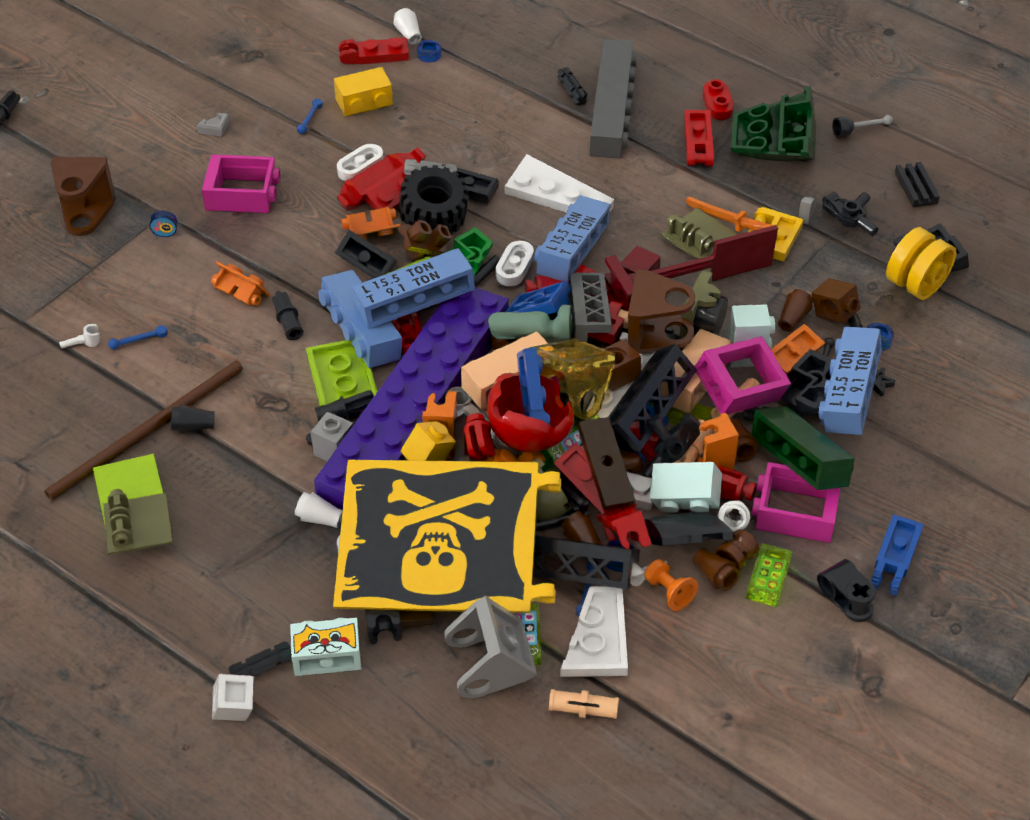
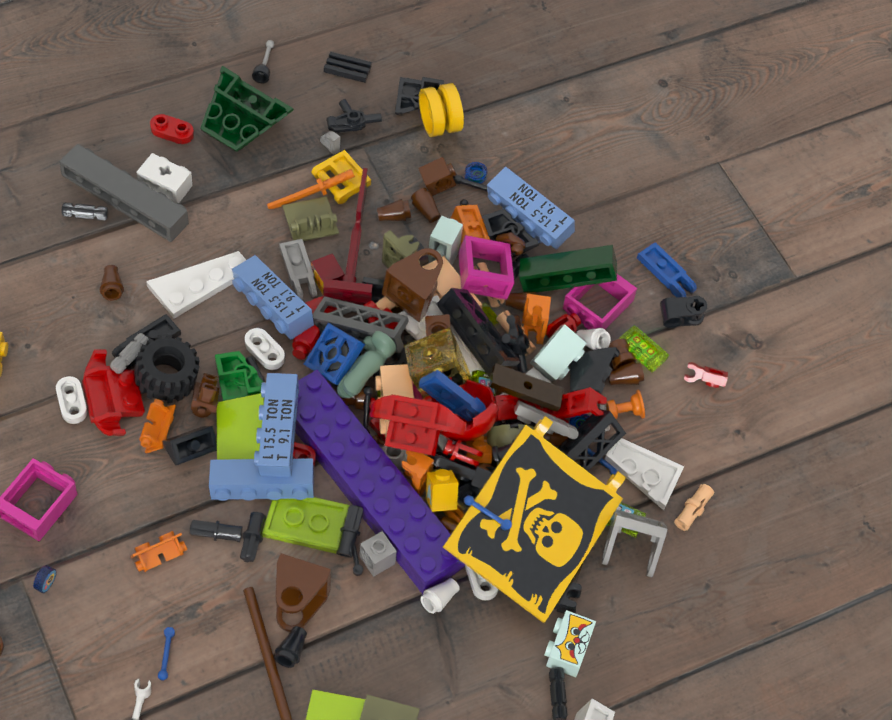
camera: 70 degrees left, 10 degrees up
(251, 387) = (300, 588): none -> reddish brown hose
(295, 341) = (252, 536): none -> black axle
(411, 503) = (505, 524): none -> blue hinge
(472, 375) = (415, 422): none -> red plate
(502, 134) = (111, 284): none -> reddish brown cone
(580, 499) = (528, 413): none -> light grey hinge
(642, 235) = (298, 266): none -> light grey hinge
(652, 116) = (165, 177): none -> white brick
(698, 137) = (208, 163): red plate -> none
(765, 290) = (395, 211): none -> reddish brown cone
(778, 651) = (711, 376): none -> plate
(796, 389) = (512, 239): none -> reddish brown arm

